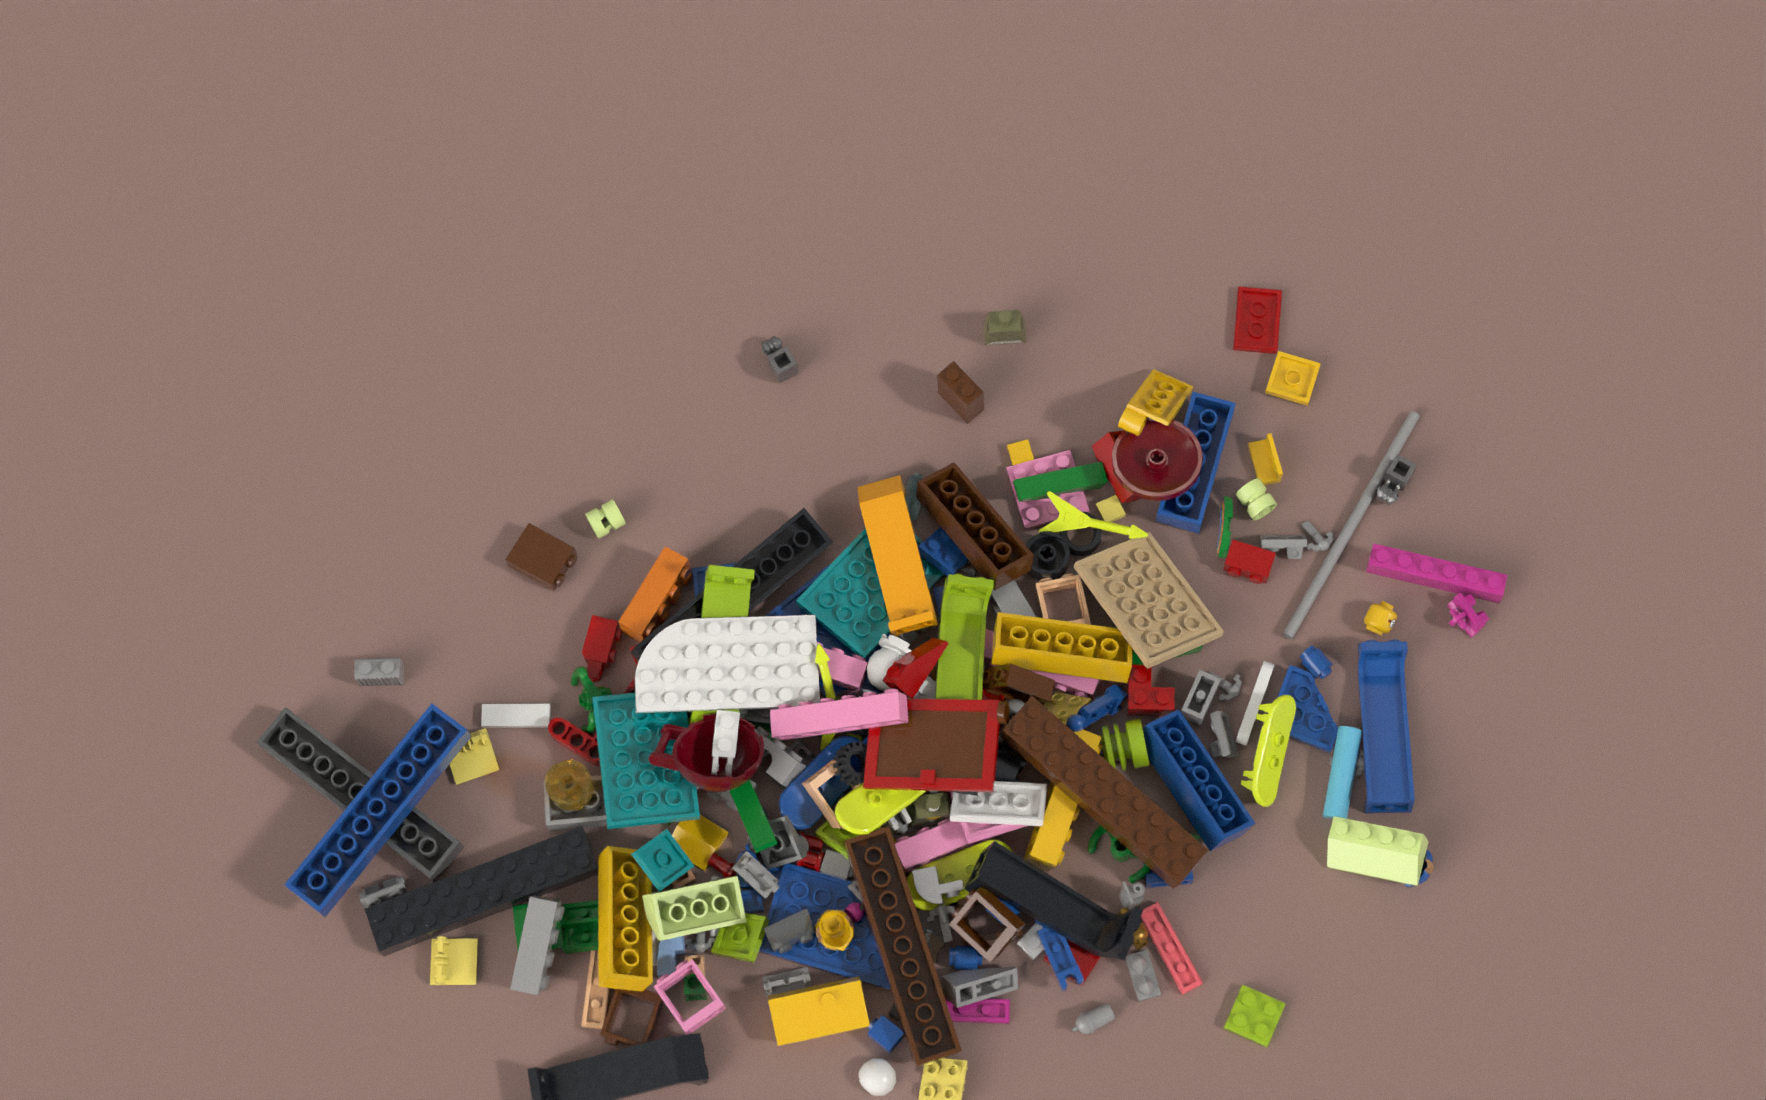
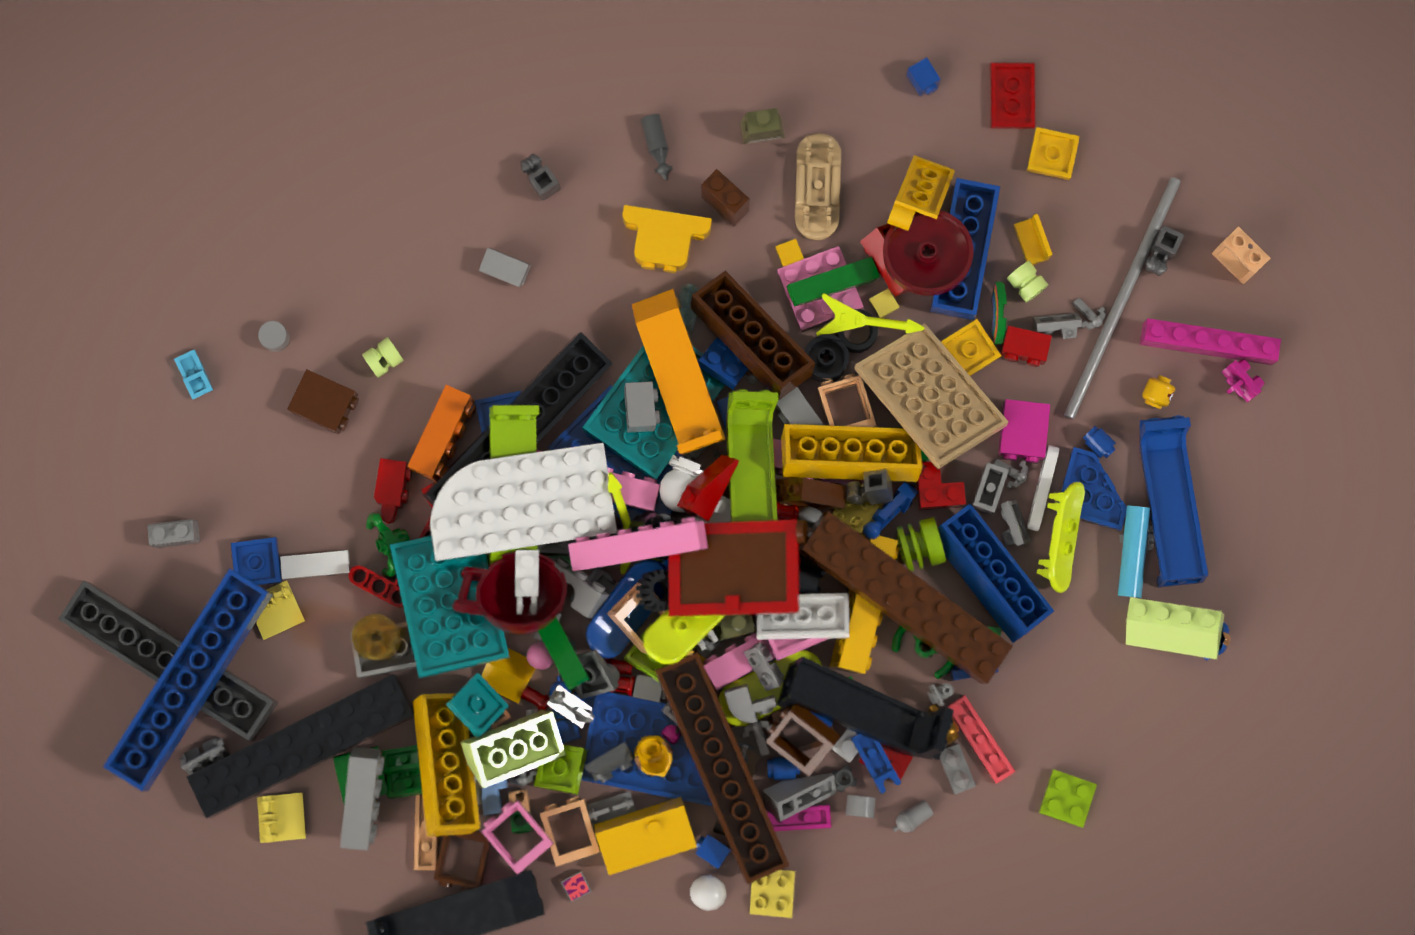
camera: 10 degrees left, 10 degrees up
(416, 520) = (193, 374): none -> medium azure slope
(461, 703) = (257, 560): none -> blue plate
(500, 490) = (273, 336): none -> light grey piece
(731, 823) = (539, 656): none -> bright pink piece
(735, 442) = (505, 267): none -> light grey hinge
(743, 1058) = (576, 886): none -> tile
(748, 1024) = (576, 854): none -> light nougat window
(856, 585) = (640, 407): none -> light grey brick
(897, 426) = (664, 236): none -> yellow brick
(898, 336) = (656, 143): none -> dark grey wheel
(958, 859) = (768, 675): none -> light grey hinge
(1032, 978) = (850, 780): none -> dark grey plate
(1040, 1002) = (860, 806): none -> light grey piece
(1054, 391) = (818, 186): none -> tan piece
(1083, 685) = (875, 489): none -> flat silver brick
(1169, 294) = (923, 77): none -> blue brick
(1195, 559) = (972, 347): none -> yellow plate
(1240, 645) = (1025, 432): none -> dark pink brick
(1473, 495) = (1238, 257): none -> light nougat window

